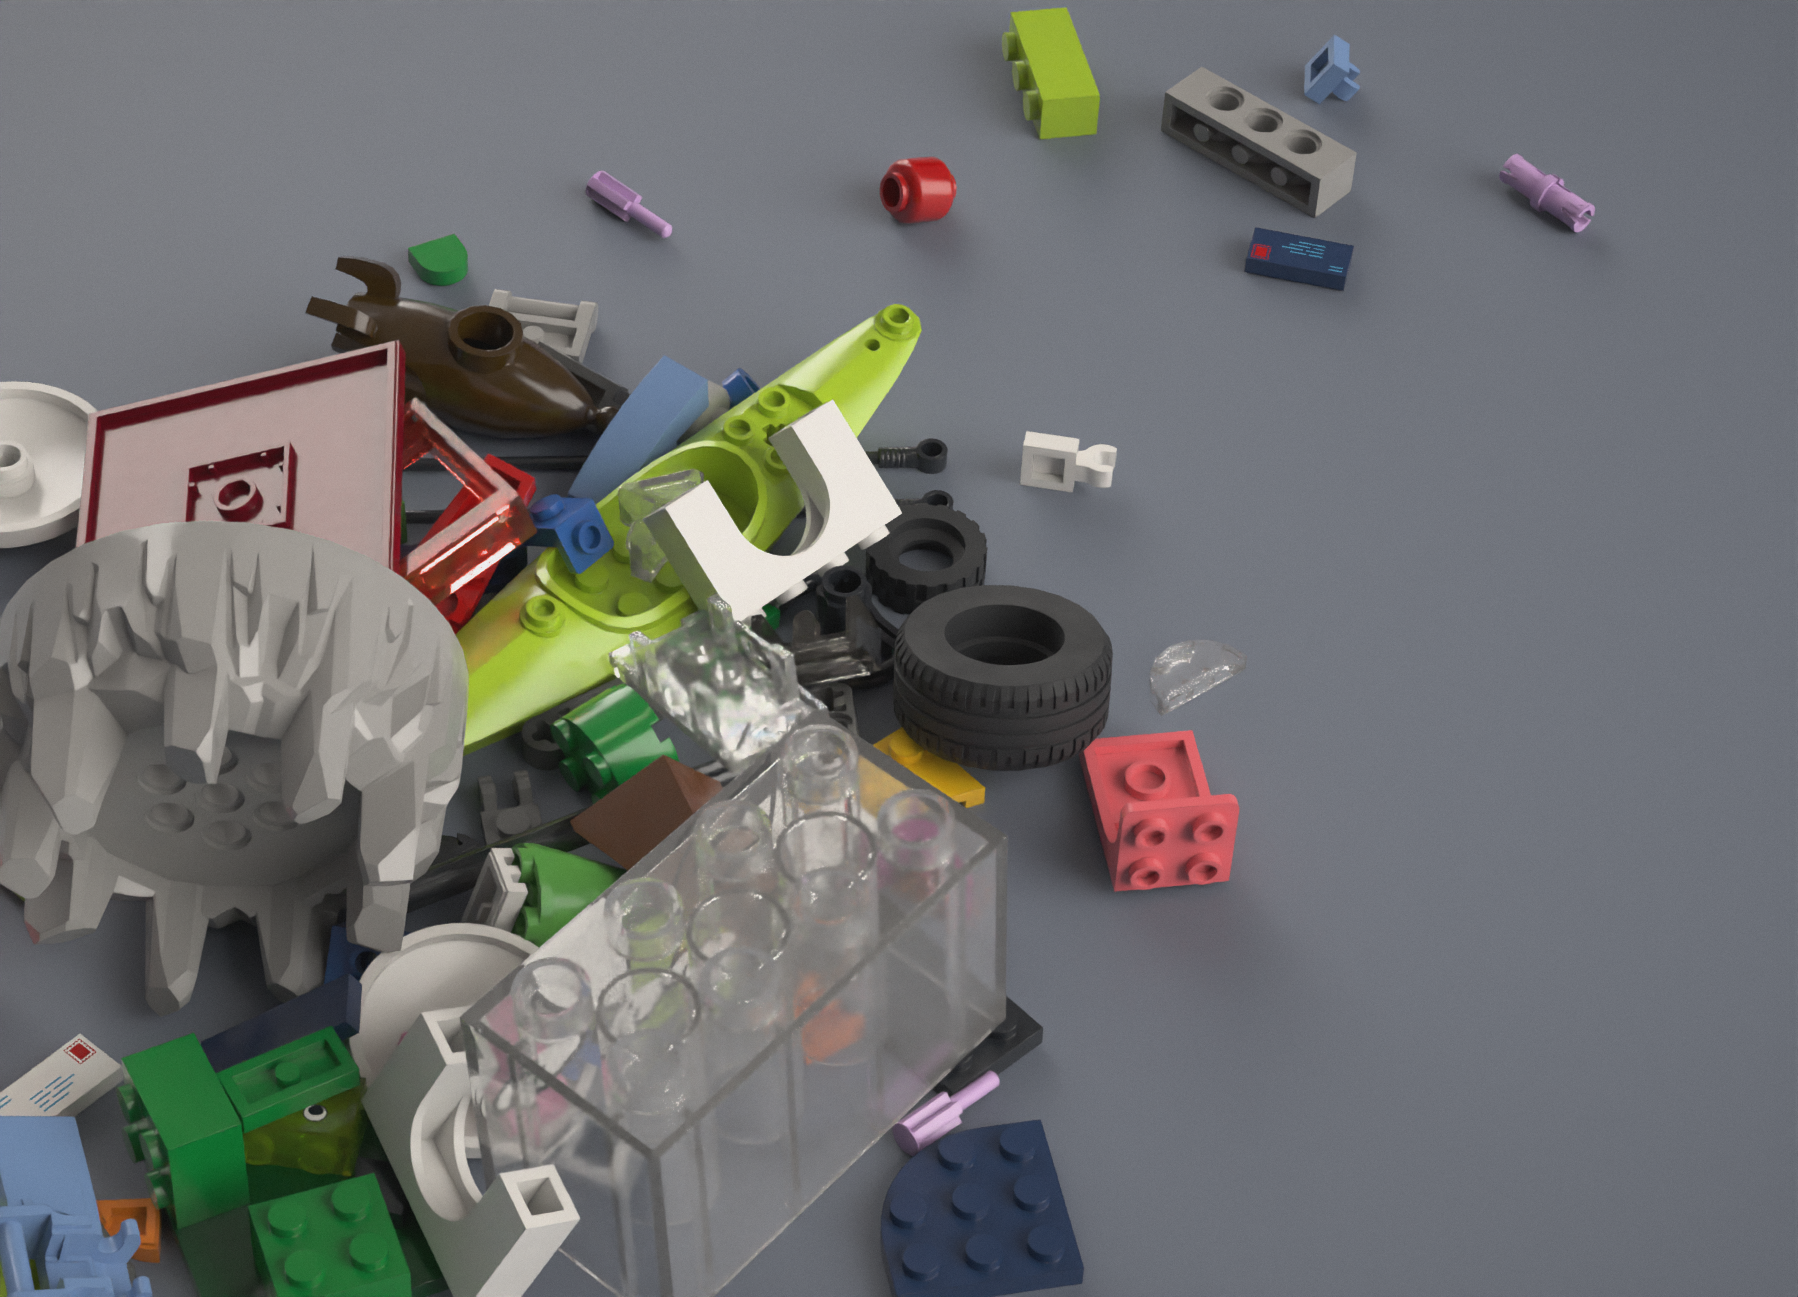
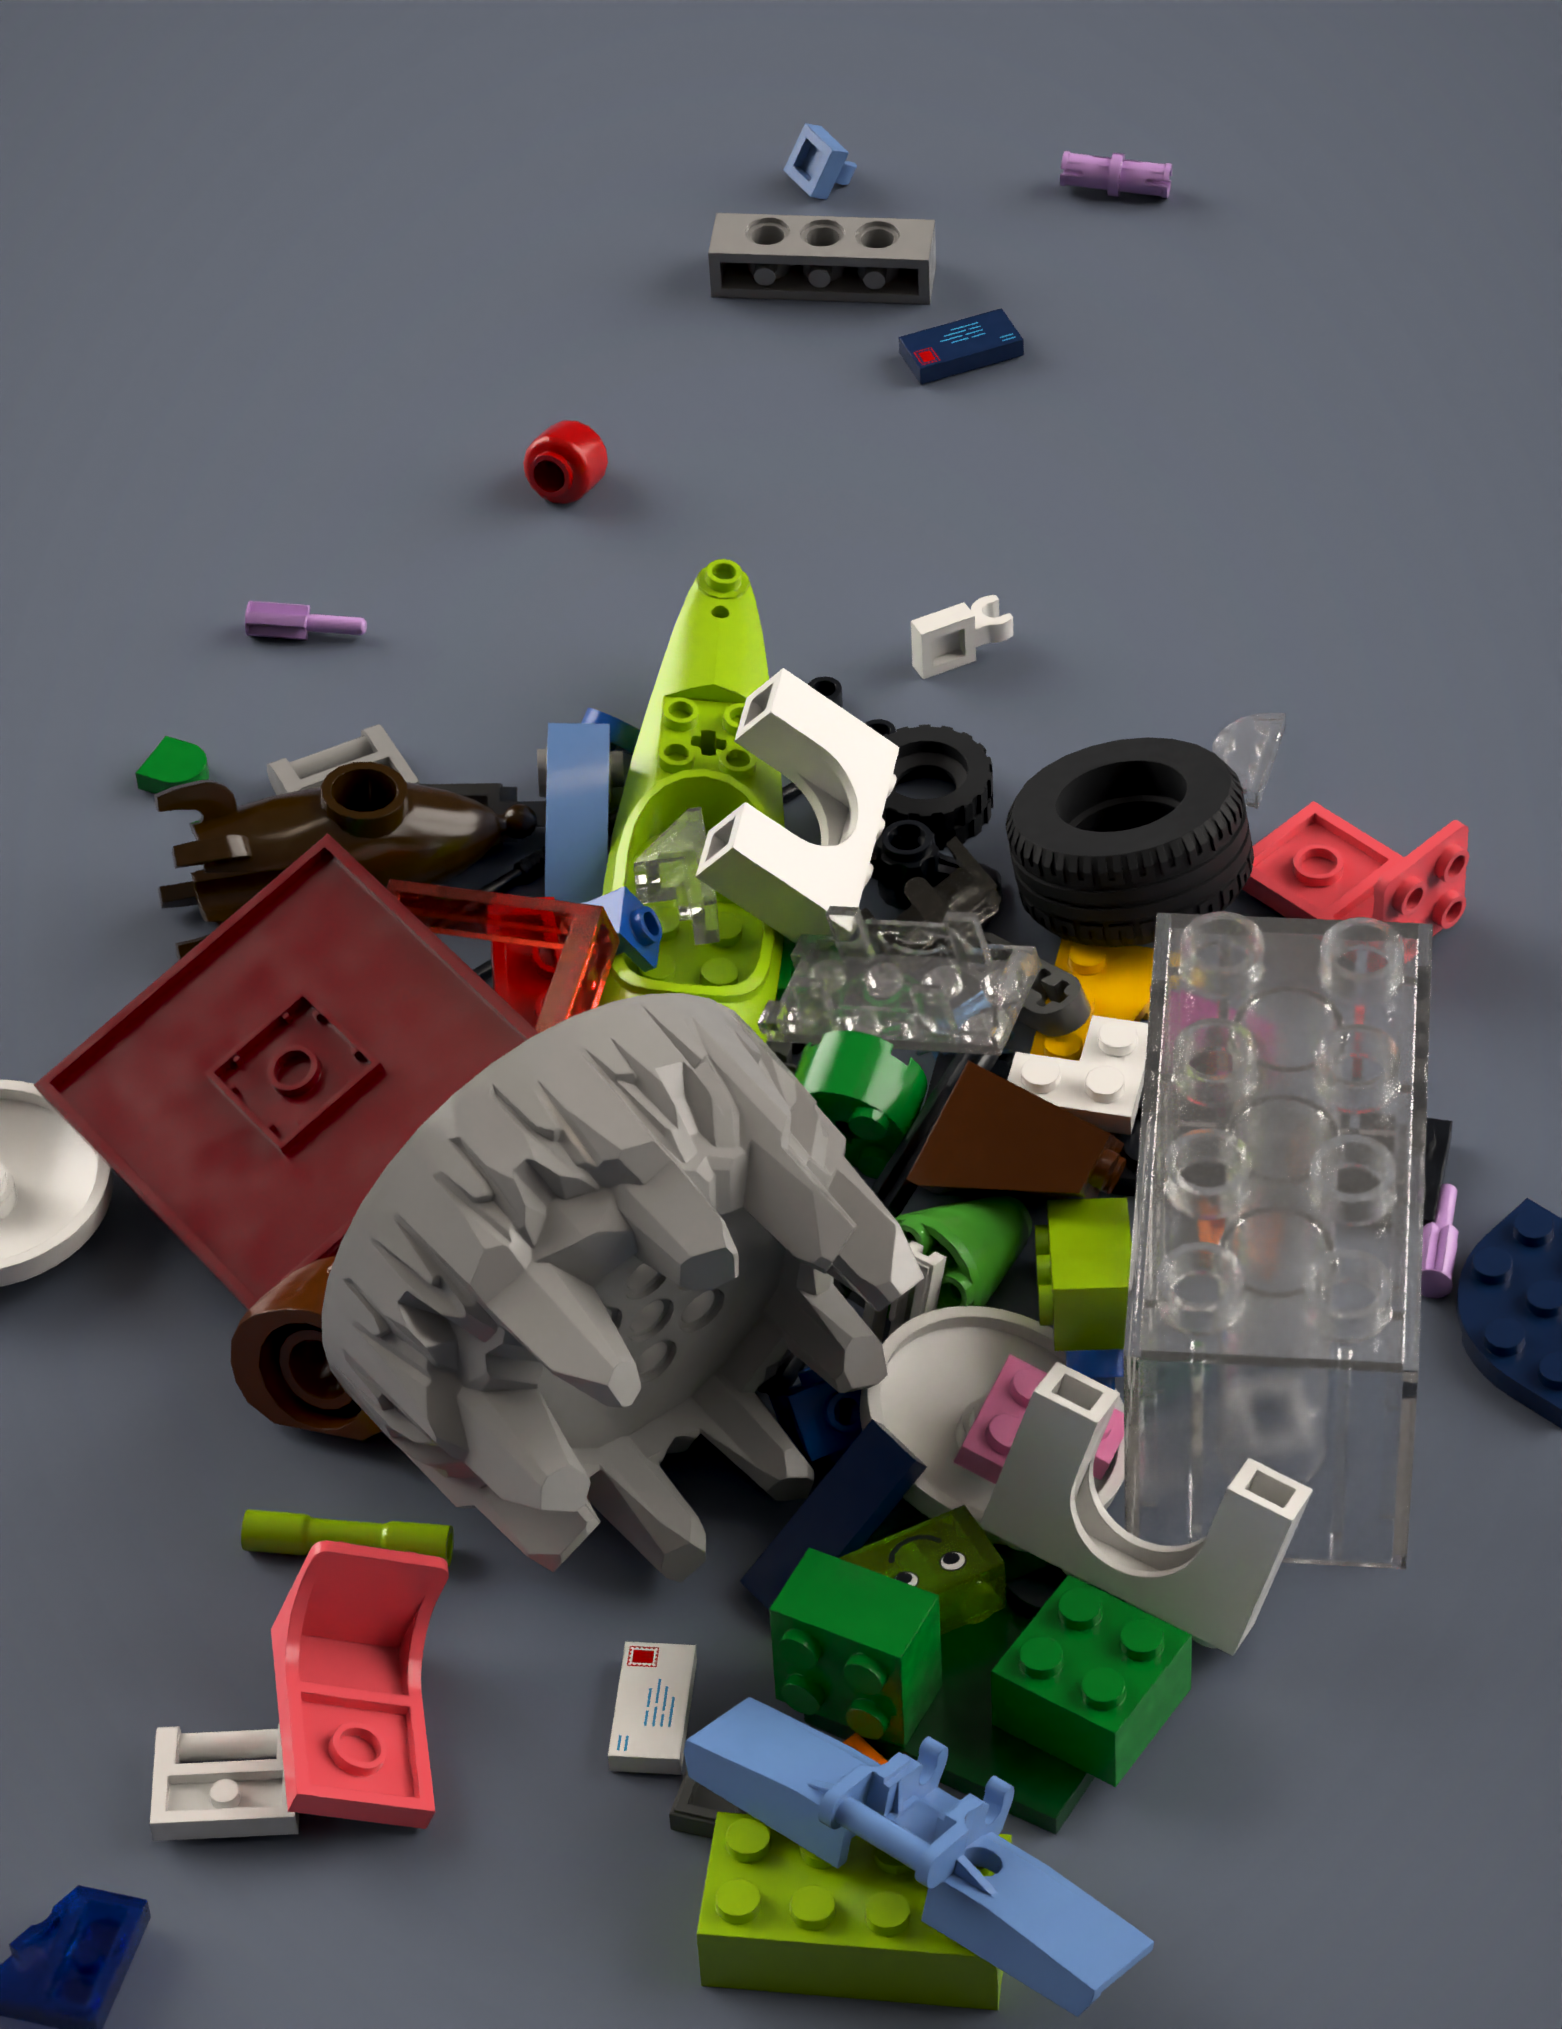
camera: 30 degrees left, 0 degrees up
(289, 1078) = (918, 1531): green plate -> none
(1051, 73) = (572, 291): lime brick -> none

